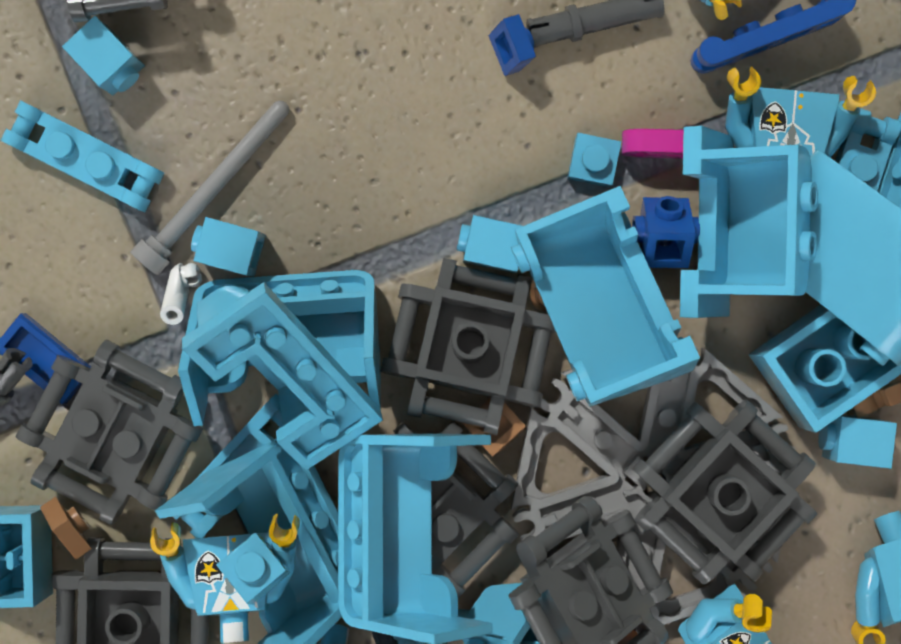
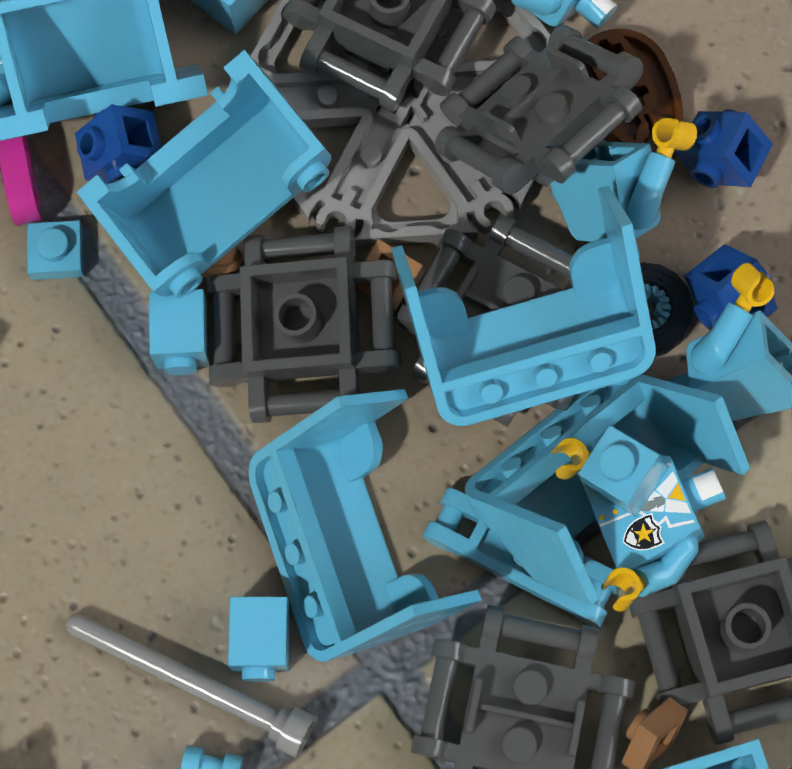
camera: 110 degrees left, 15 degrees down
(177, 291) = (335, 688): white arm -> none
(316, 396) = (377, 500): medium azure windscreen -> none

